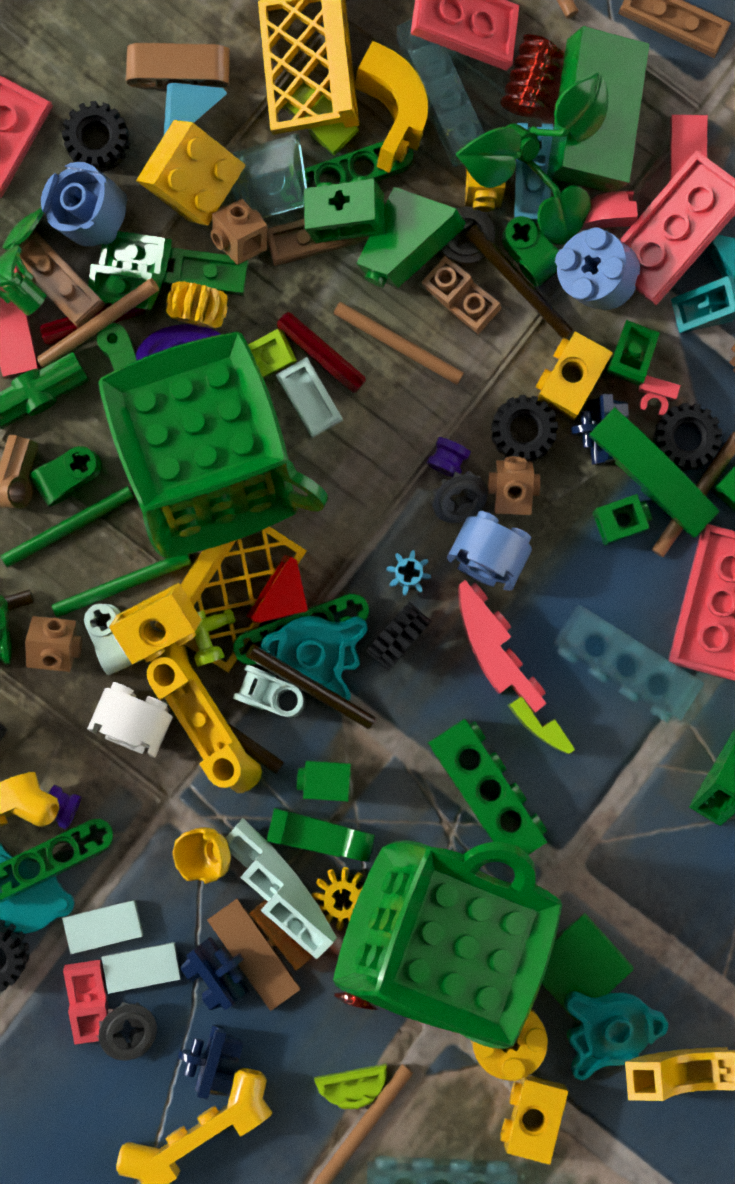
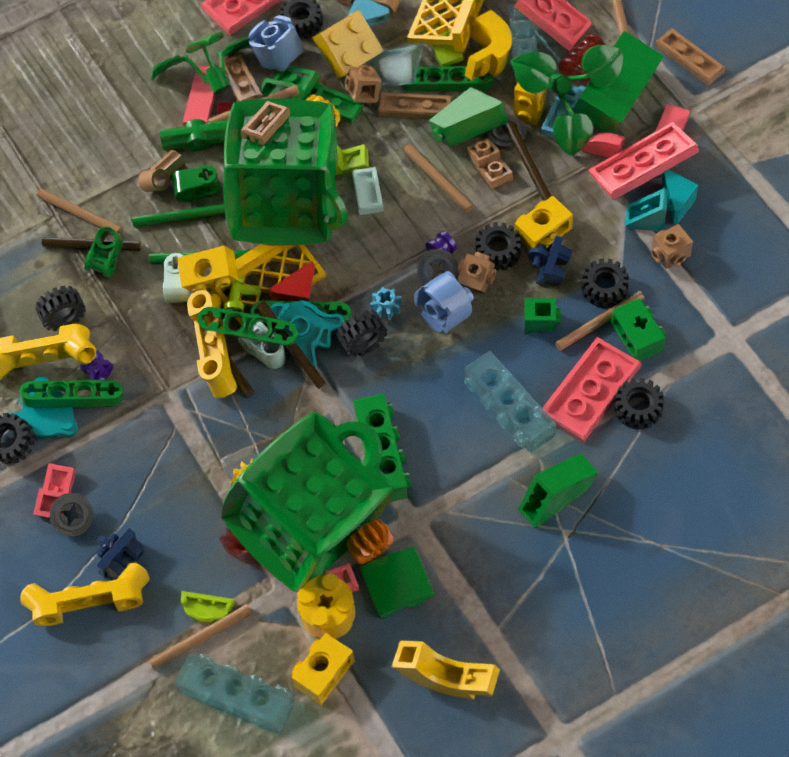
camera: 25 degrees right, 25 degrees down
(52, 644) = (138, 270): medium nougat brick -> none
(102, 926) = (88, 449): light aqua tile -> none
(130, 720) = (166, 326): white brick -> none
(141, 967) = (100, 483): light aqua tile -> none
(159, 436) = (269, 123): none -> medium nougat tile
(202, 855) = (173, 422): yellow hair -> none
(218, 973) = (150, 498): dark blue hips -> none
(249, 698) = (249, 322): none -> green beam
(260, 961) = (178, 500): medium nougat tile -> none
(287, 897) = (215, 460): light aqua slope -> none
(288, 946) = (202, 491): clear orange pin -> none
(319, 835) = (245, 432): green leg -> none
(321, 352) = (386, 168): dark red axle -> none
(325, 780) = (275, 400): green brick -> none
(344, 210) = (433, 88): green brick -> none
(485, 636) = (422, 365): coral slope -> none
(533, 254) = (544, 148): green piece -> none
(548, 733) = (436, 424): lime slope -> none
(596, 251) = (581, 166): medium blue brick -> none
(610, 1030) = (399, 623): teal tile -> none
(633, 353) = (583, 223): green slope -> none
(654, 472) = (573, 291): green slope -> none
(659, 390) = (596, 248): coral tile -> none

